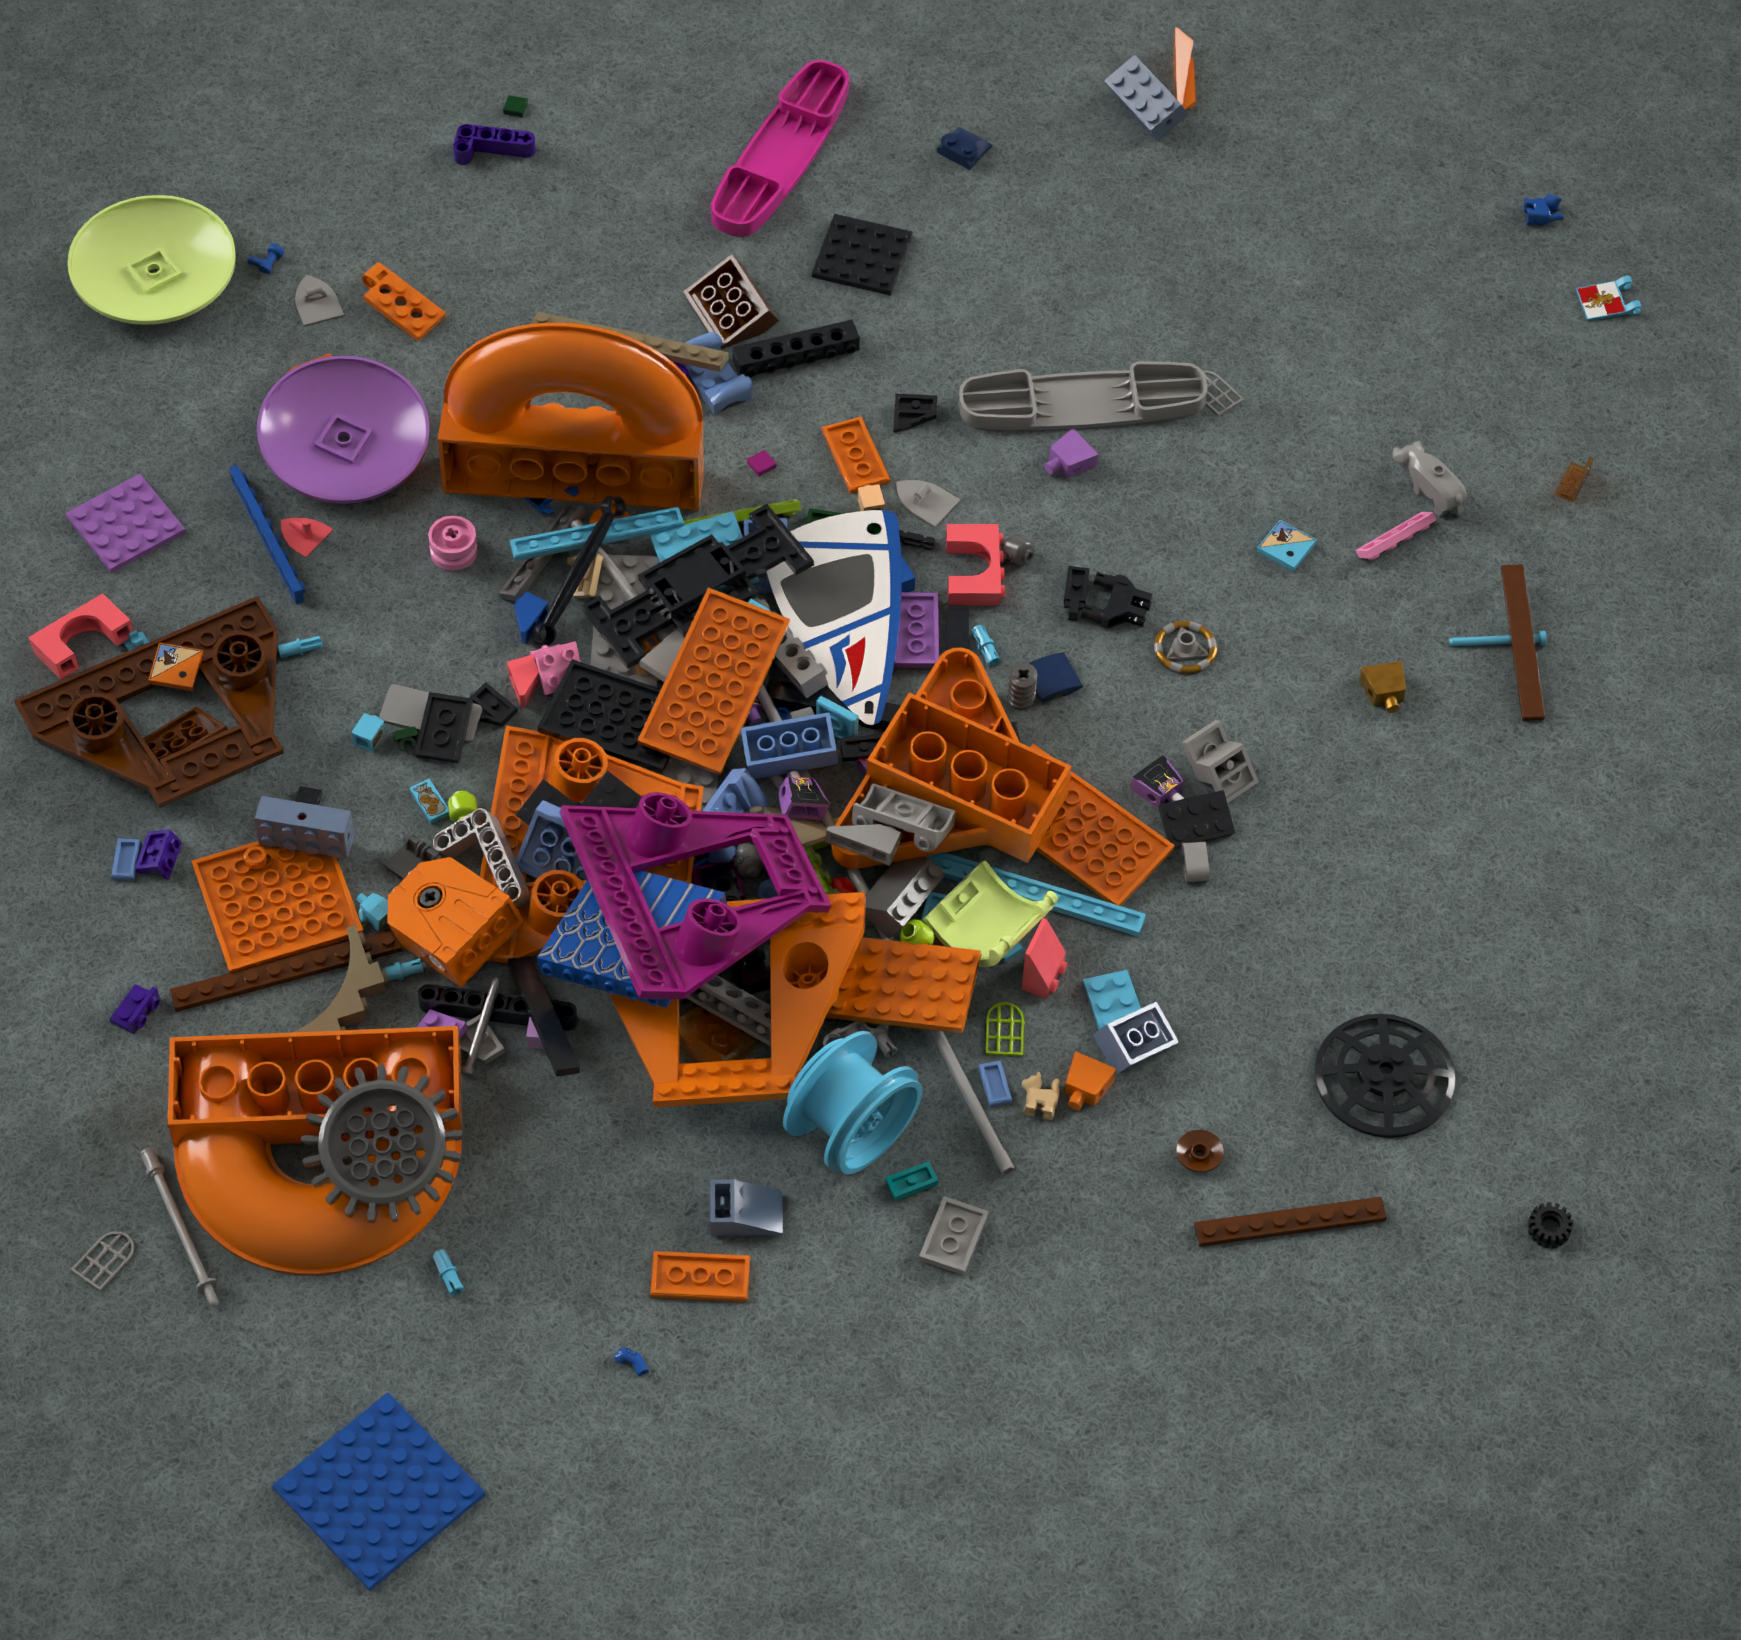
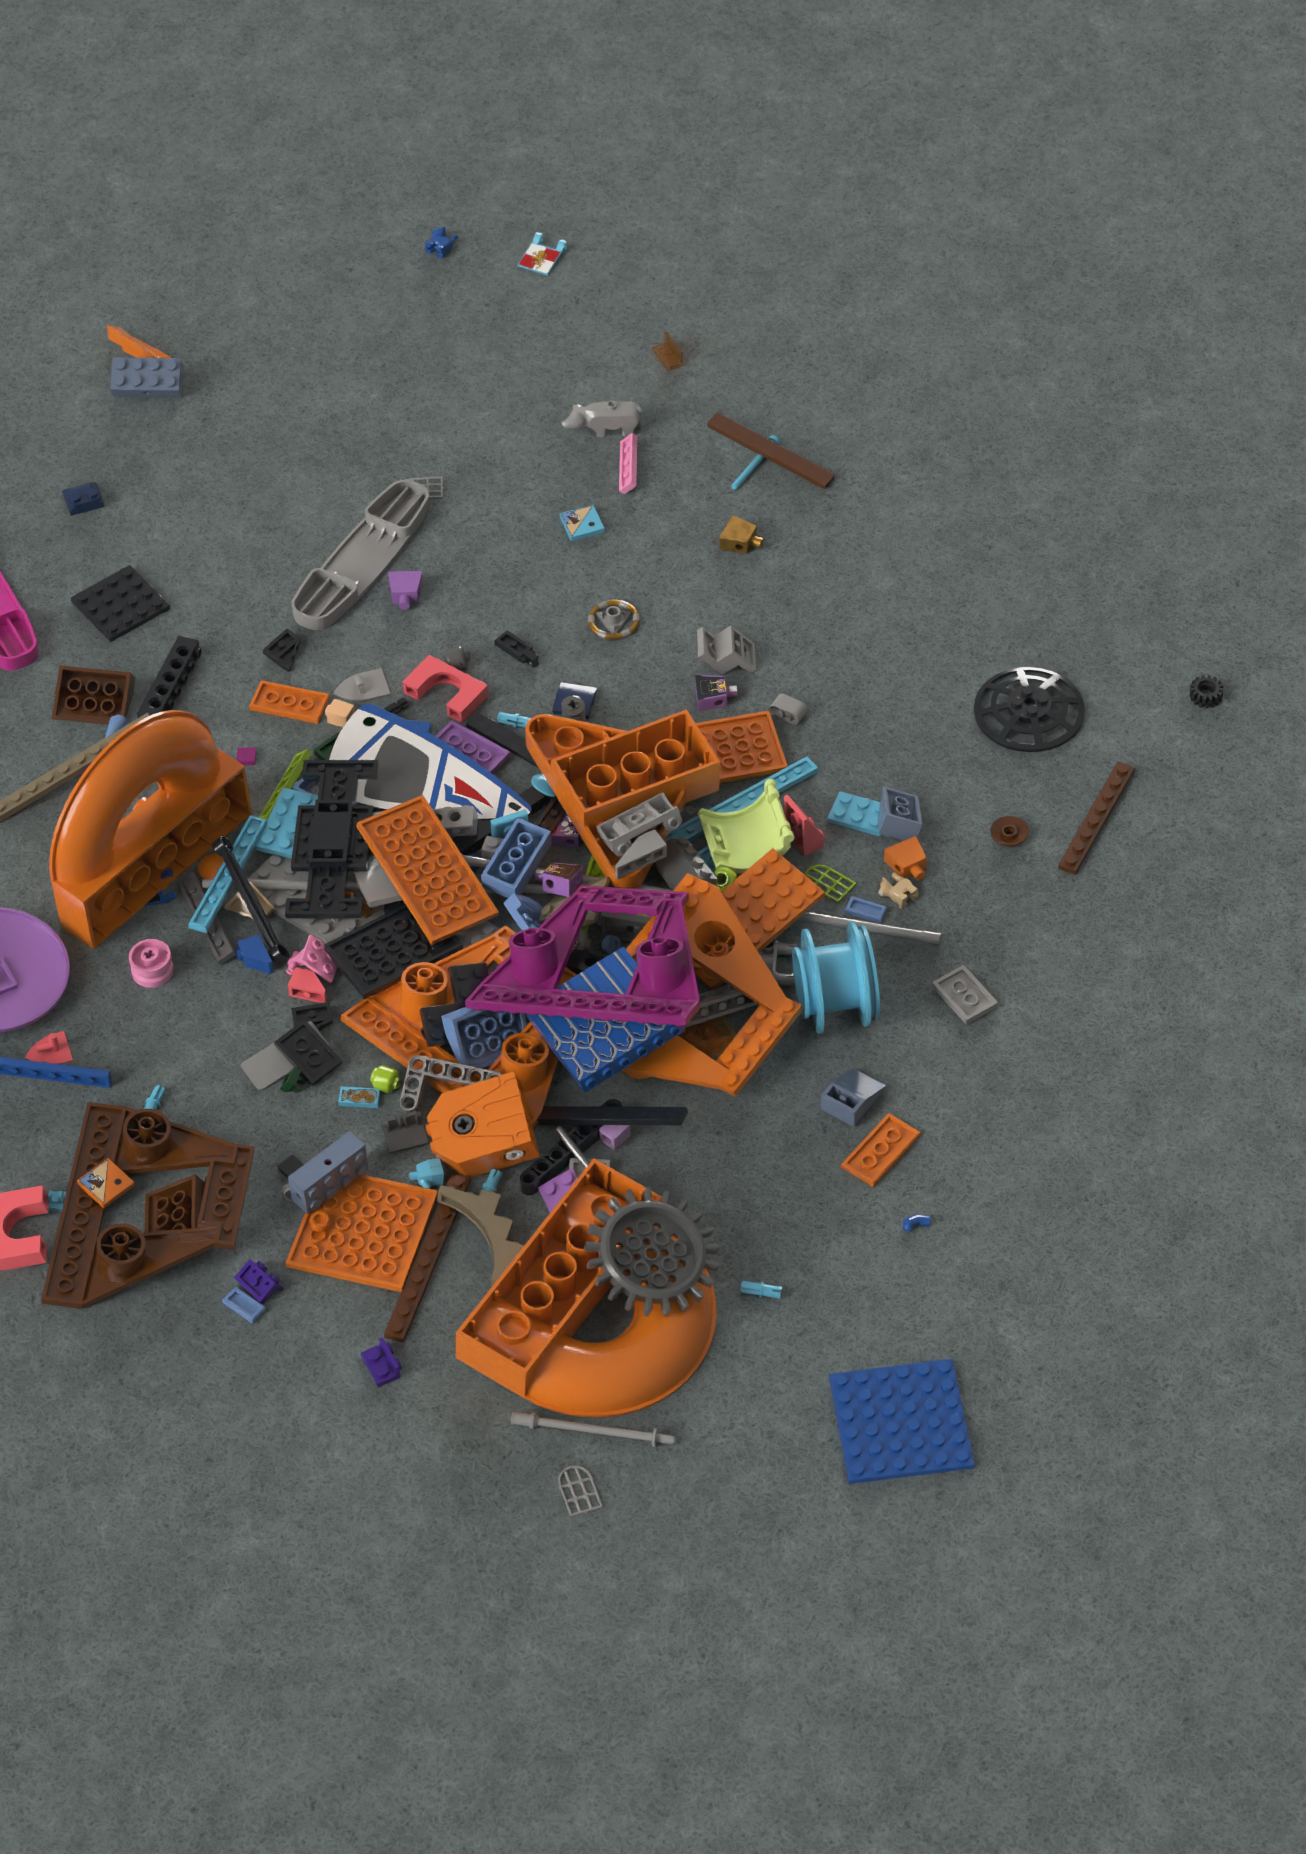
camera: 50 degrees left, 5 degrees down
(368, 732) = (269, 1100): medium azure brick -> none
(911, 1181) = (904, 994): teal plate -> none
(1124, 604) = (550, 628): black connector -> none
(1197, 818) = (757, 688): black plate -> none

